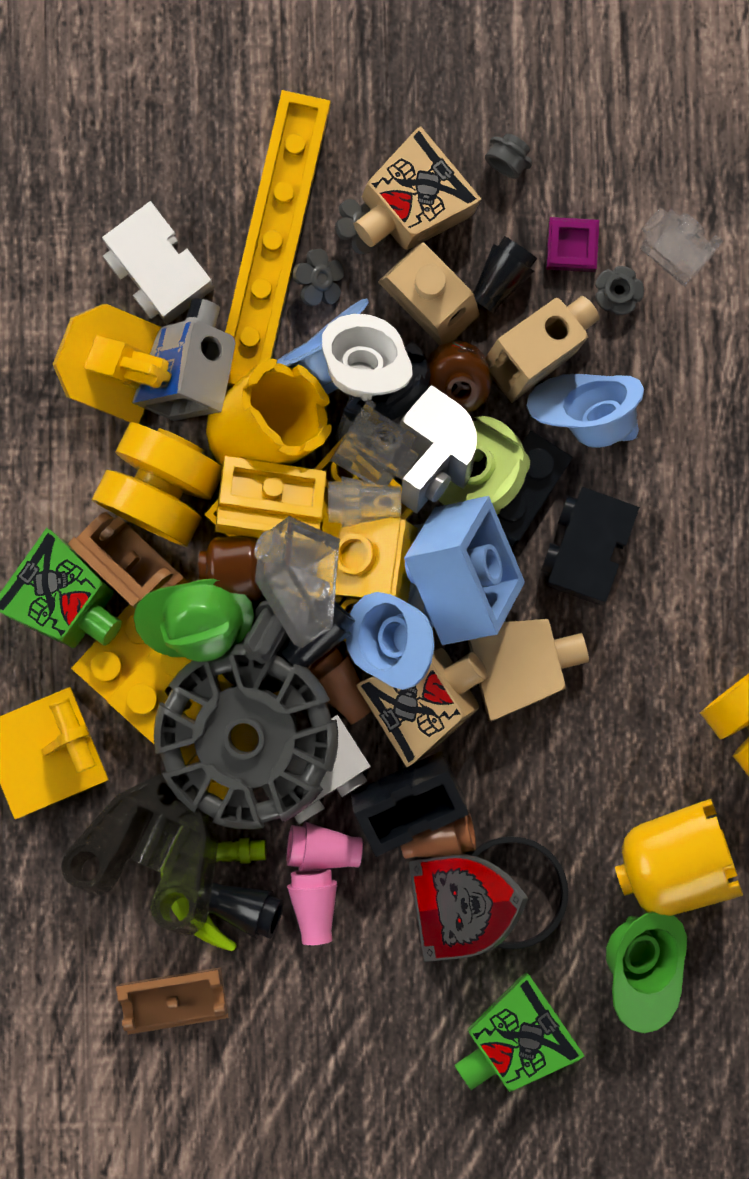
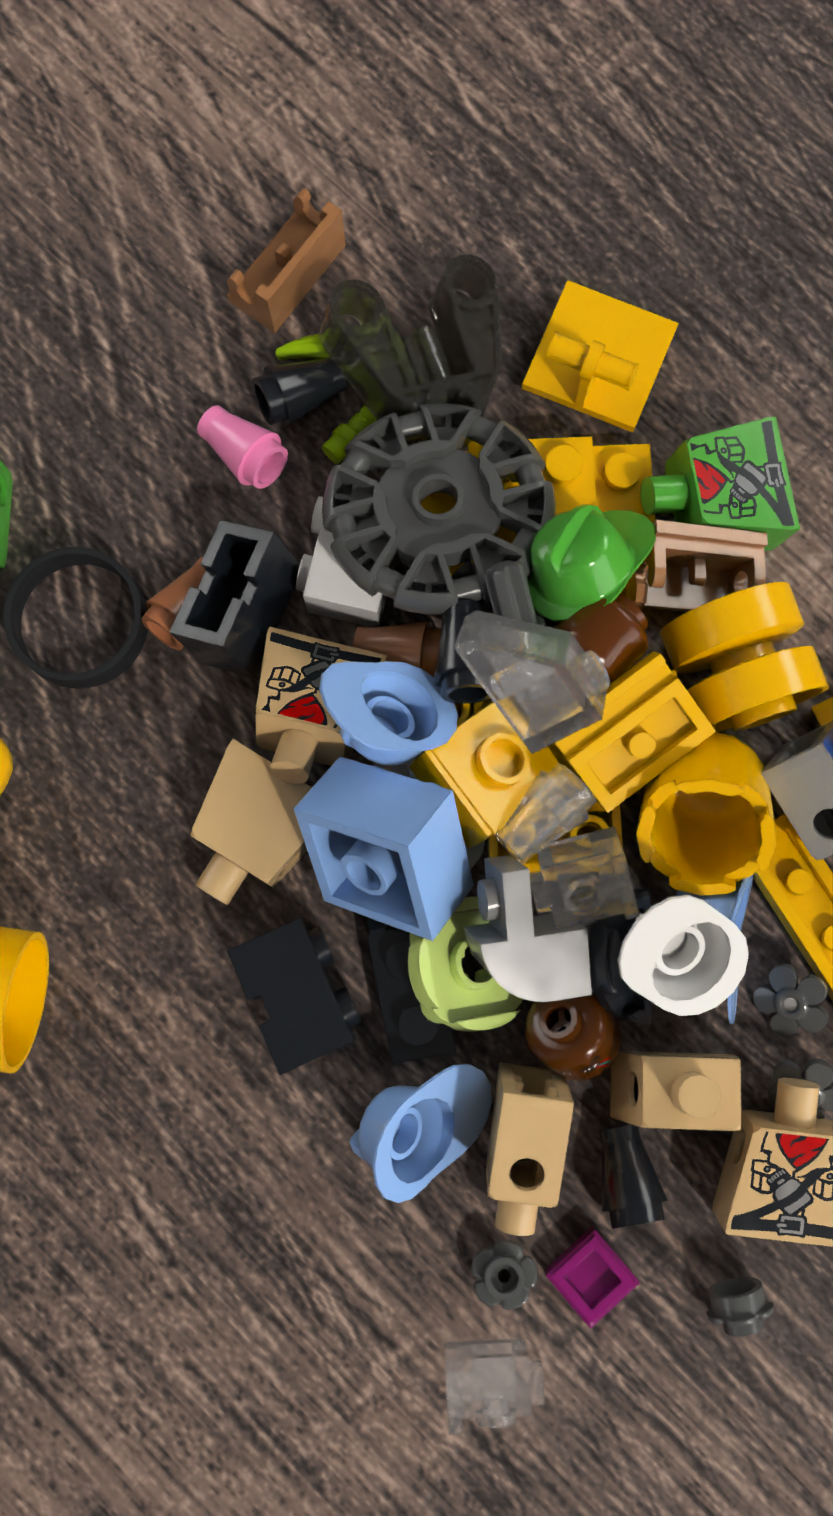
camera: 135 degrees right, 5 degrees down
(320, 848) = (281, 496): bright pink cone -> none
(463, 905) = (99, 555): shield -> none

